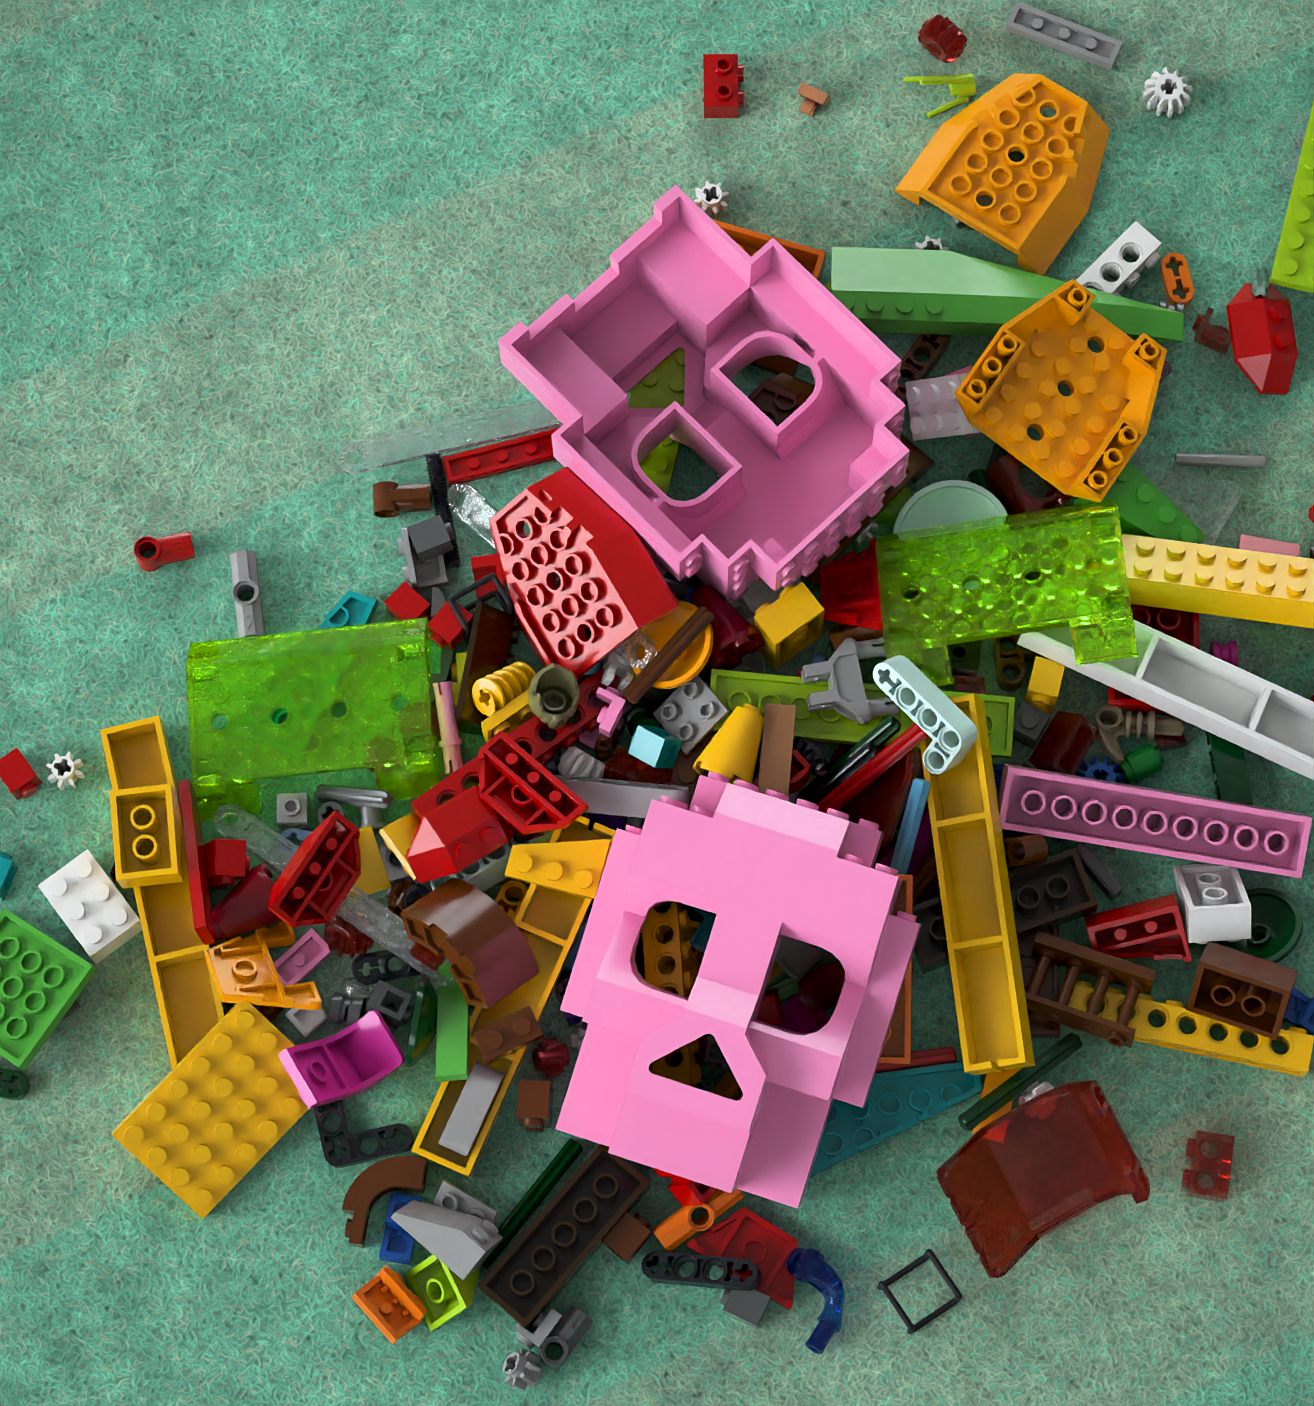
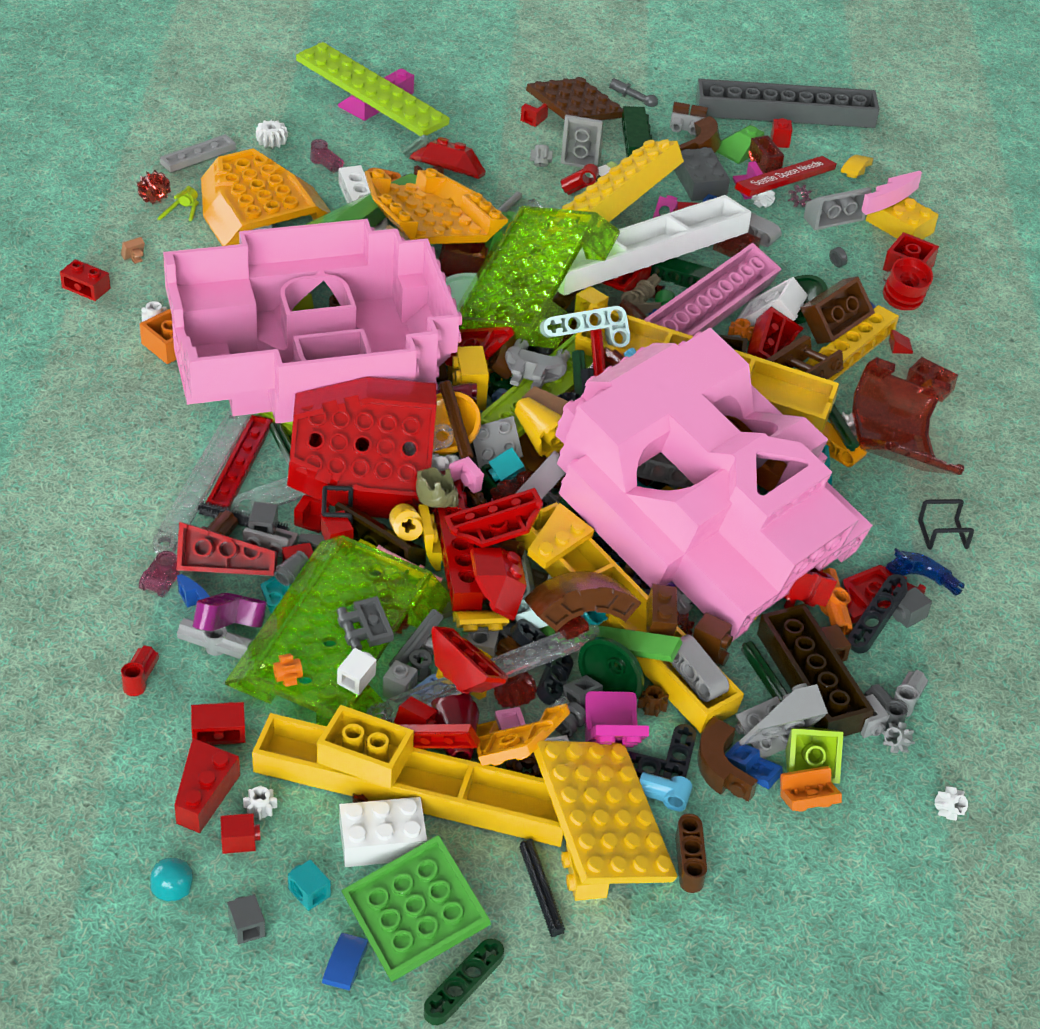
camera: 70 degrees left, 30 degrees down
(54, 705) = (204, 784): none -> red wedge
(118, 1092) = (541, 888): none -> black axle
(134, 670) = (218, 723): none -> red brick
(202, 702) = (287, 670): none -> orange gear
(220, 1218) = (691, 853): none -> reddish brown beam
(245, 768) = (356, 671): none -> white brick
(289, 583) = (228, 609): none -> magenta beam
(296, 531) = (190, 590): none -> blue slope
(297, 485) = (160, 574): none -> clear pink piece
(308, 1160) = (672, 792): none -> medium azure piece
(318, 744) = (372, 620): none -> dark grey plate
(359, 529) = (216, 553): none -> red wedge
(373, 610) = (290, 568): none -> dark grey cone
(422, 1090) = (653, 701): none -> reddish brown gear
(609, 1355) = (911, 689): none -> light grey piece
(1149, 875) = (741, 327): none -> orange gear
(1164, 186) = (322, 155): none -> clear pink piece
(1272, 1096) = (900, 343): none -> red slope

